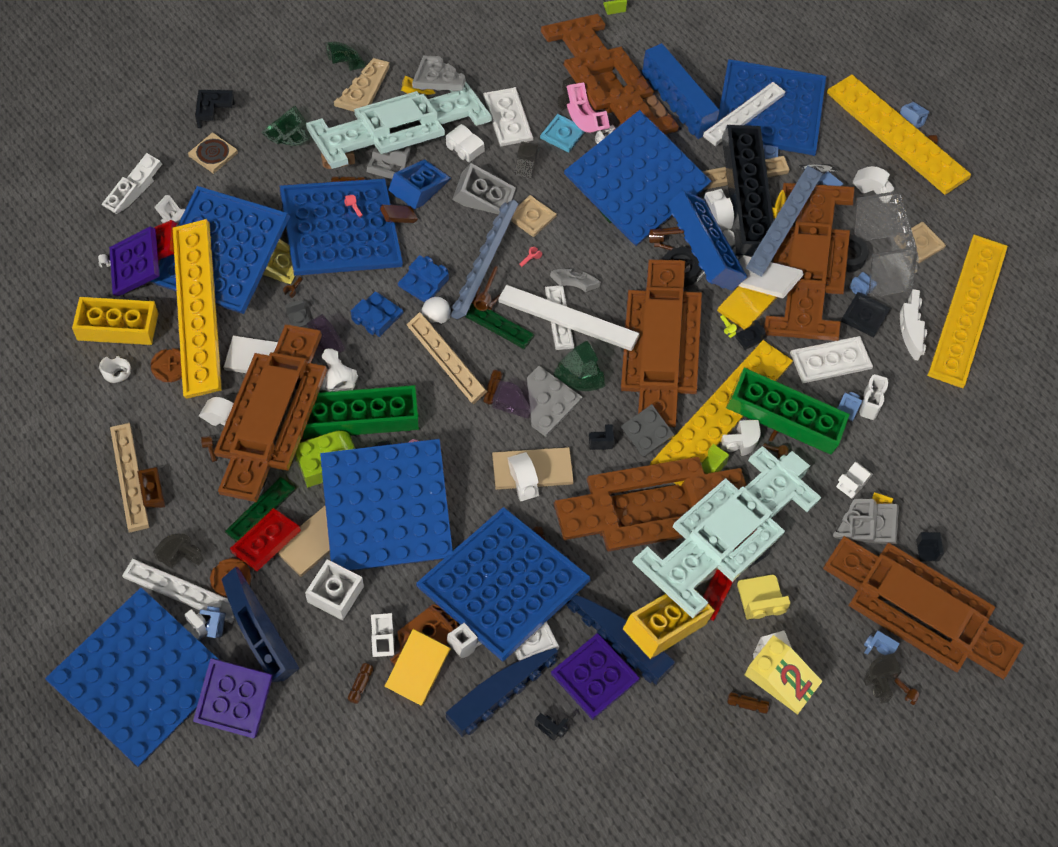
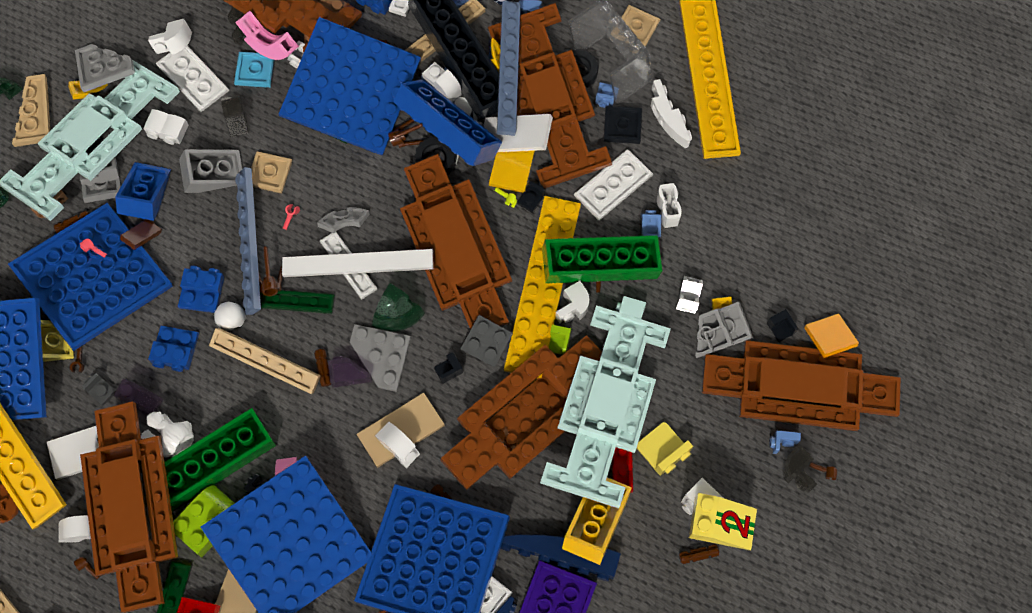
camera: 25 degrees left, 10 degrees up
(507, 81) = (173, 40): none -> white brick
(781, 450) = (613, 297): reddish brown hand -> none
(973, 577) = (831, 335): none -> light orange tile

